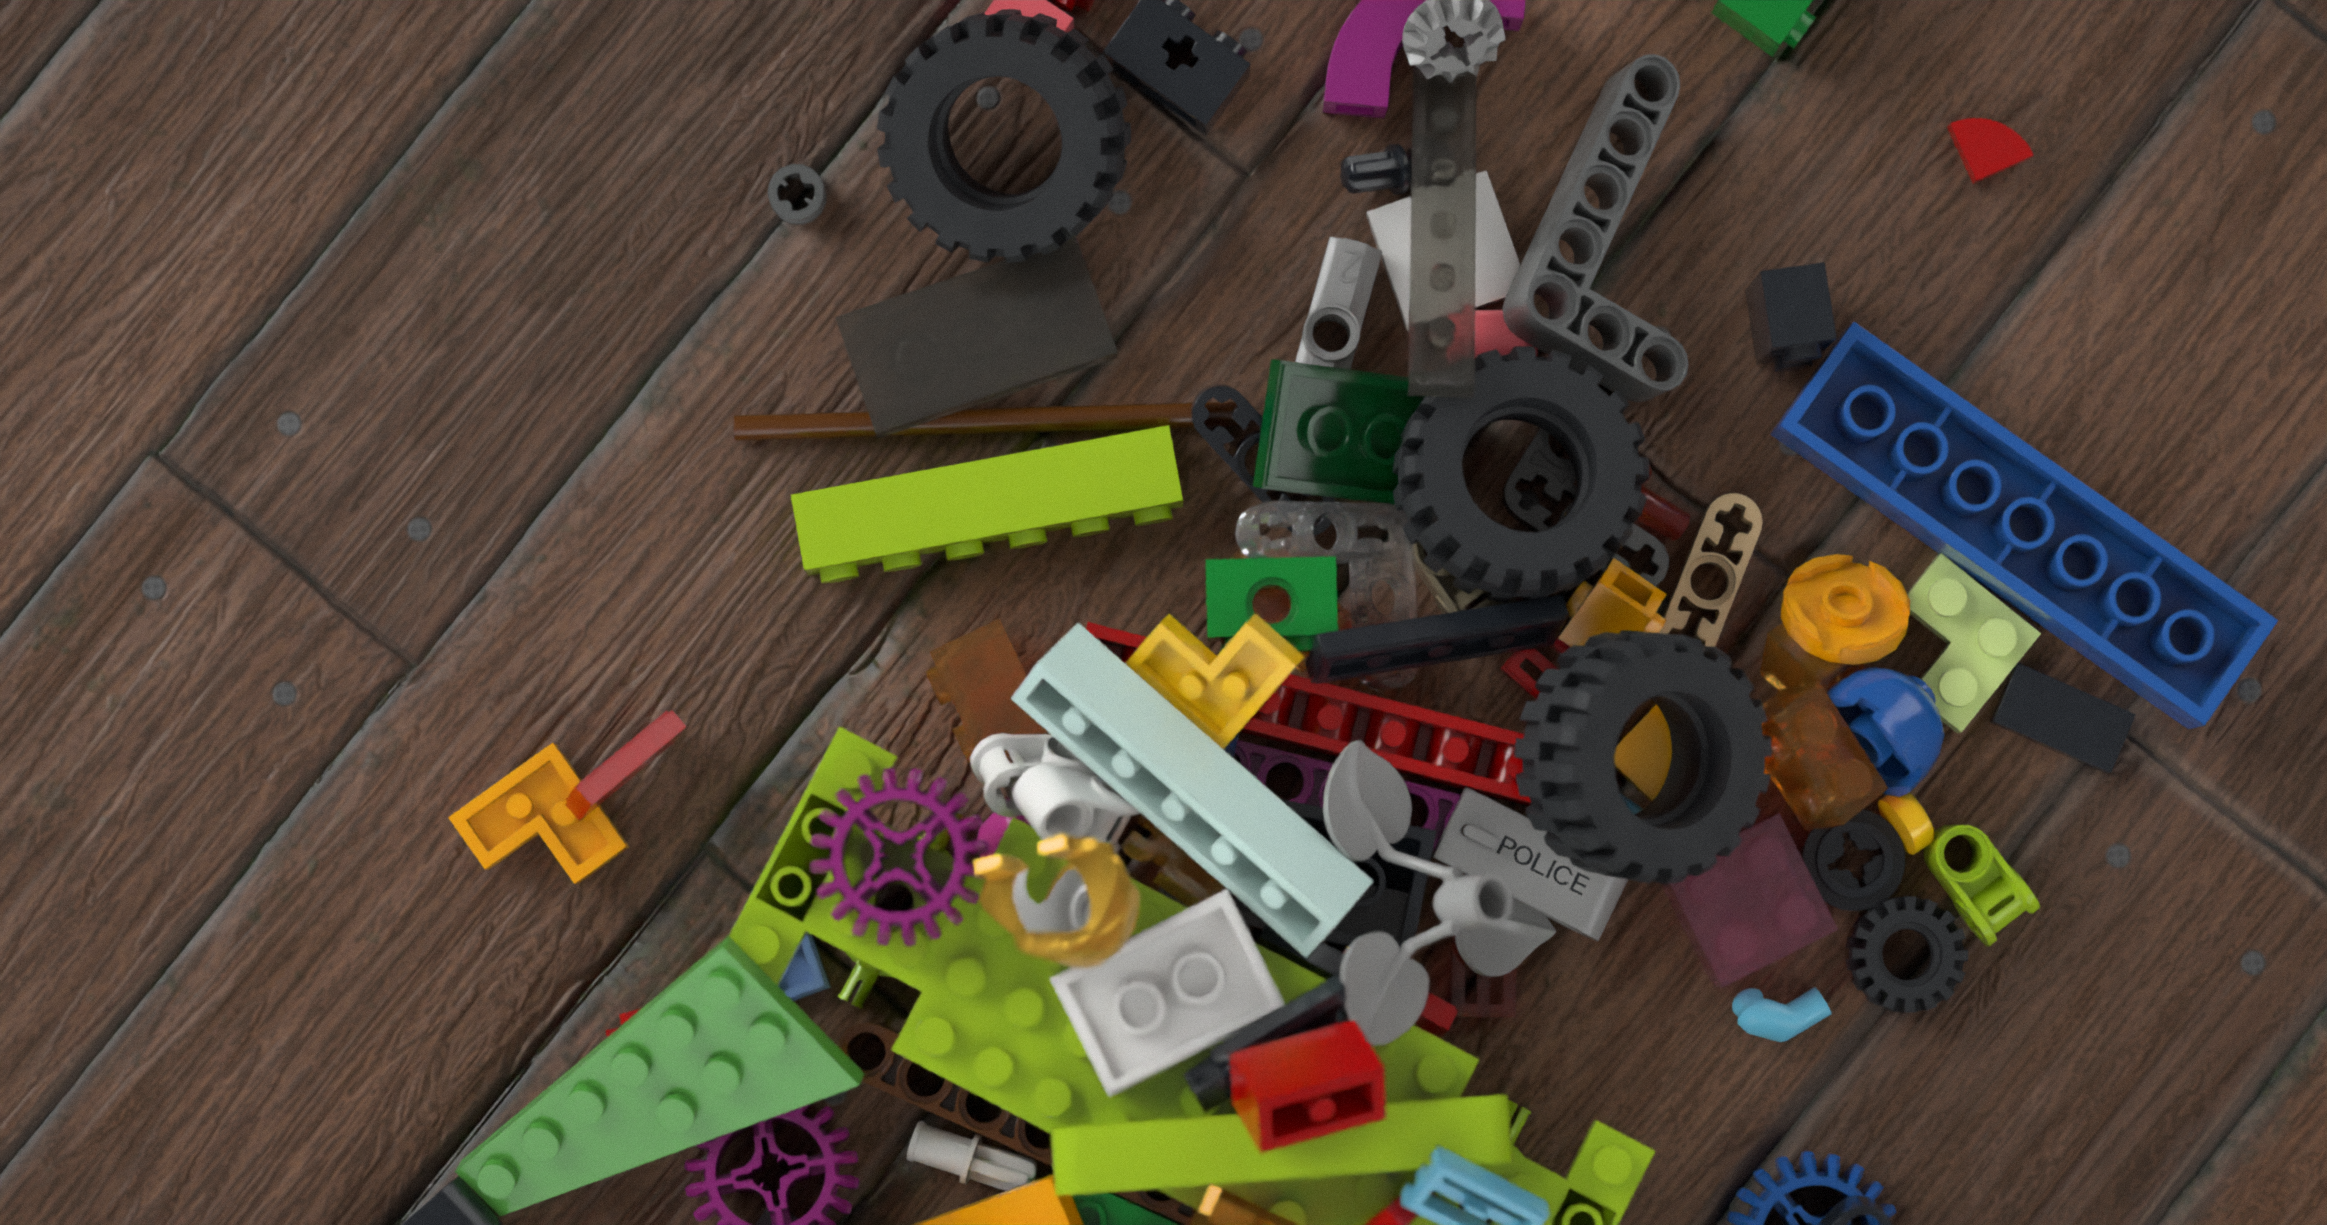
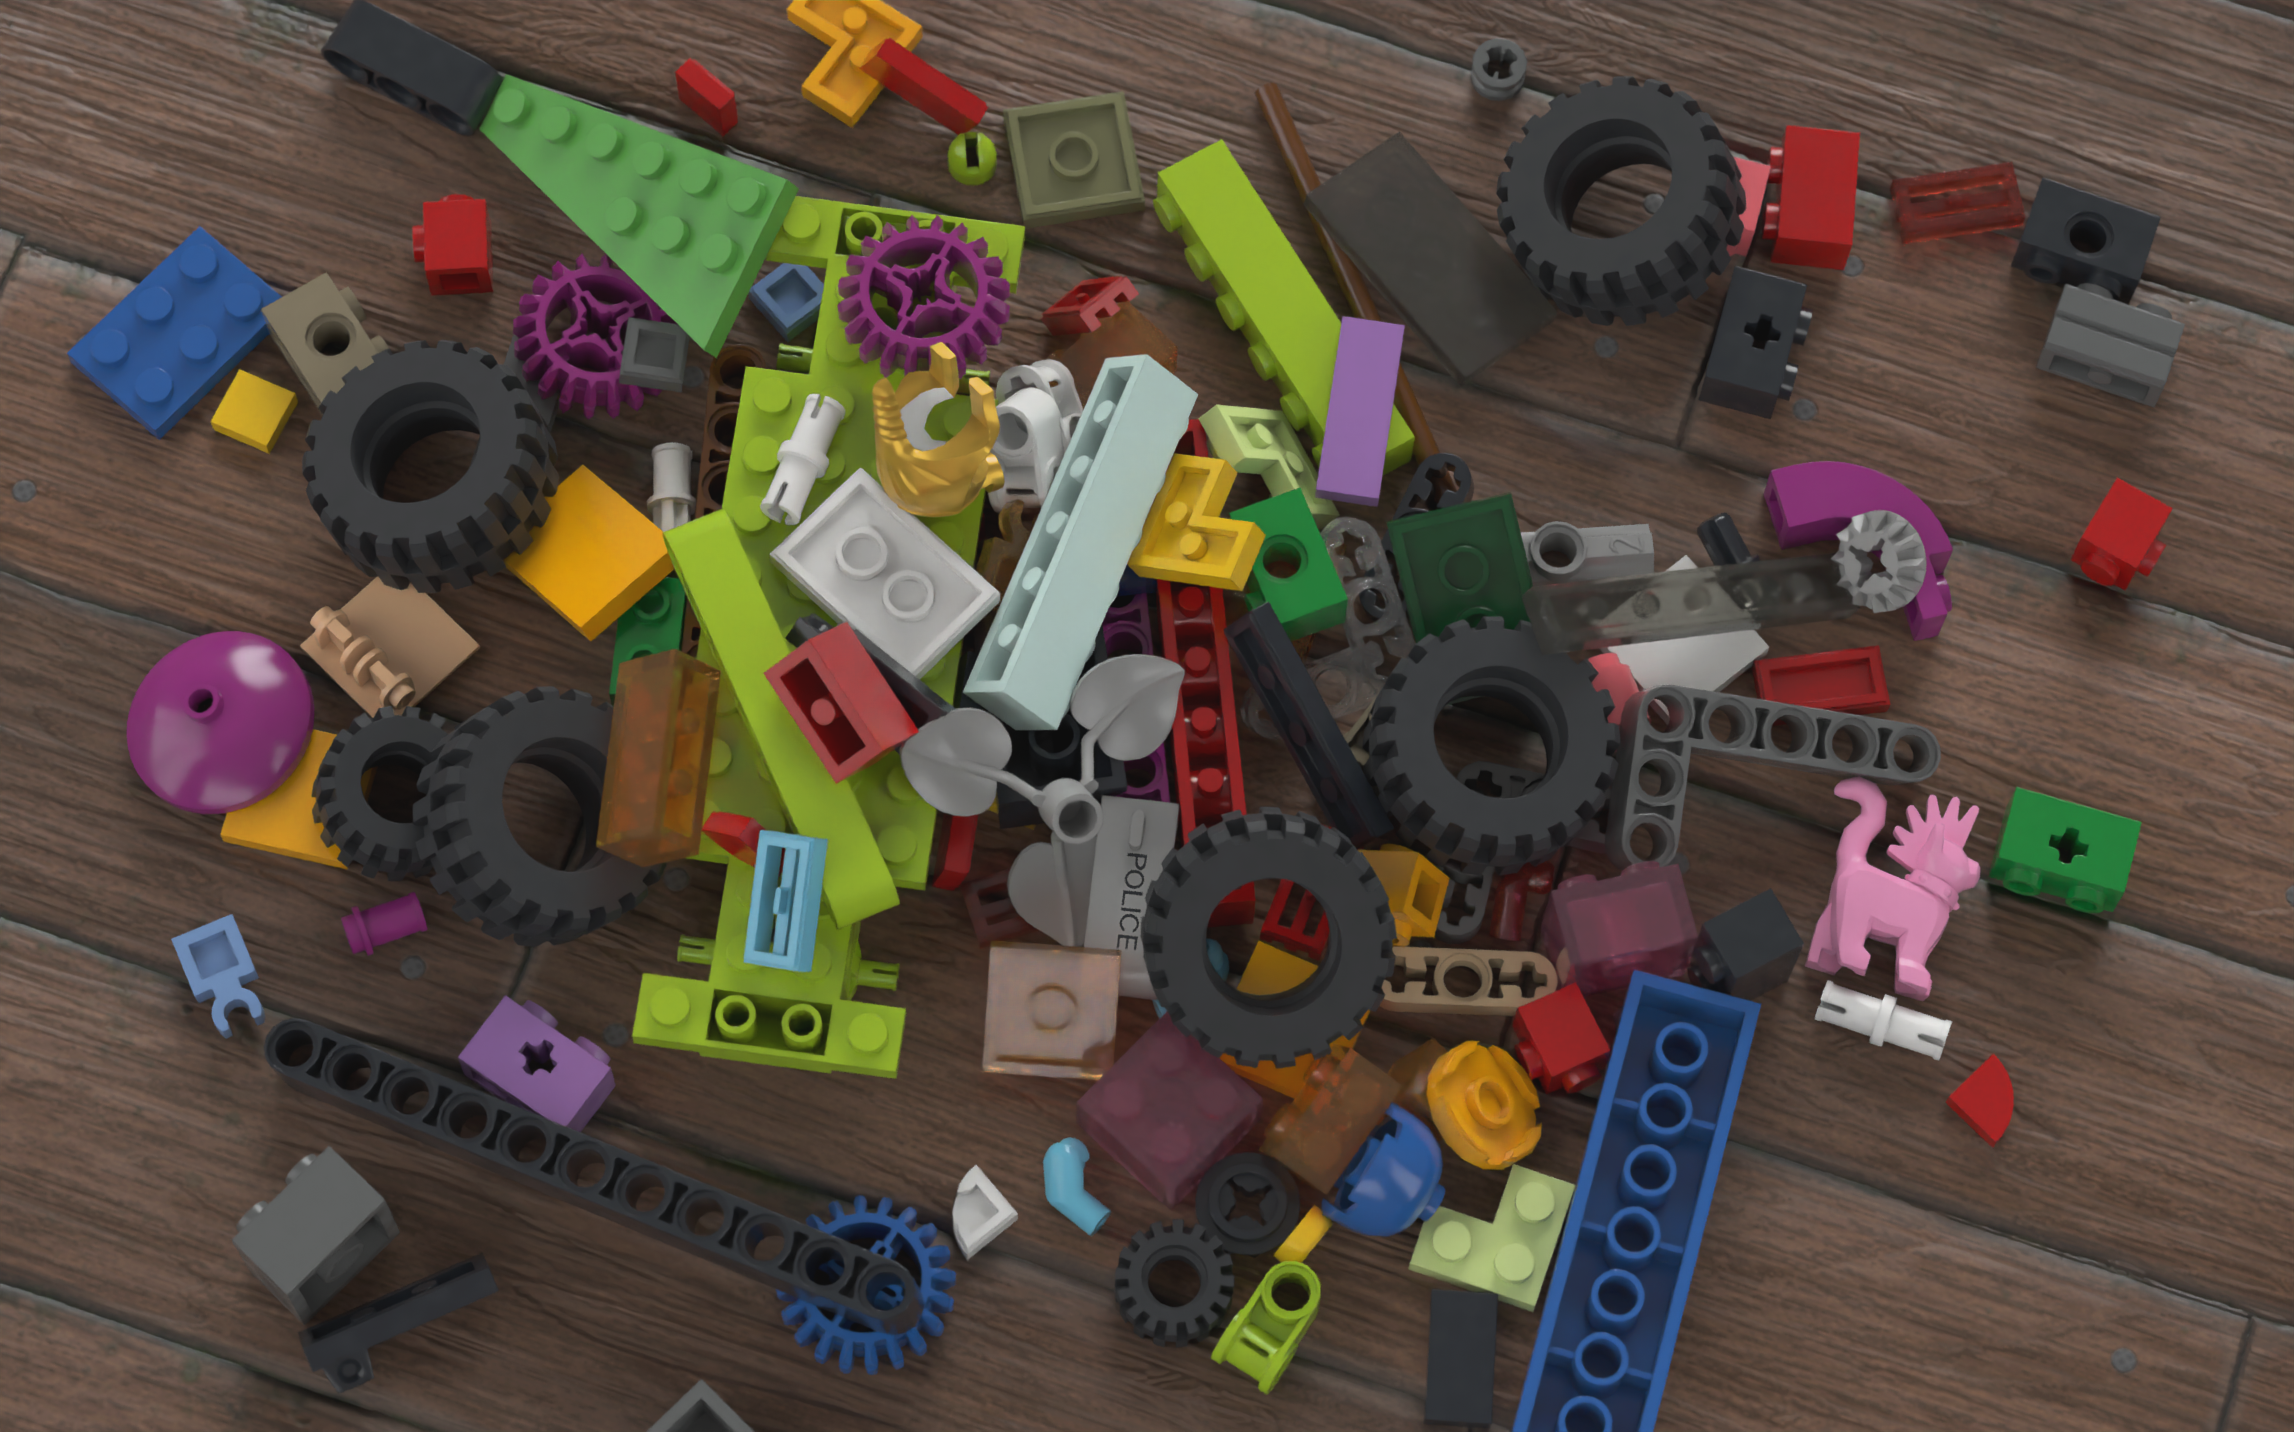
camera: 65 degrees right, 15 degrees down
(549, 979) = (707, 96): none -> red tile
(701, 755) = (957, 158): none -> lime hinge
(741, 642) = (1073, 160): none -> olive tile
(826, 1131) = (654, 355): none -> dark grey tile
(936, 680) = (1096, 300): none -> red tile
(1022, 1031) = (802, 459): none -> white pin
(1126, 563) = (1266, 445): none -> yellowish green plate
(1129, 468) = (1359, 411): none -> medium lavender tile
(1536, 136) = (1830, 680): none -> red tile
(1613, 975) = (1051, 1010): none -> clear orange tile
(1728, 422) = (1619, 924): none -> clear pink brick
(1772, 1109) = (979, 1213): none -> white tile
(1773, 176) = (1886, 907): none -> bright pink animal
(1804, 515) = (1560, 1041): none -> red brick
(1884, 210) = (1883, 1020): none -> white pin

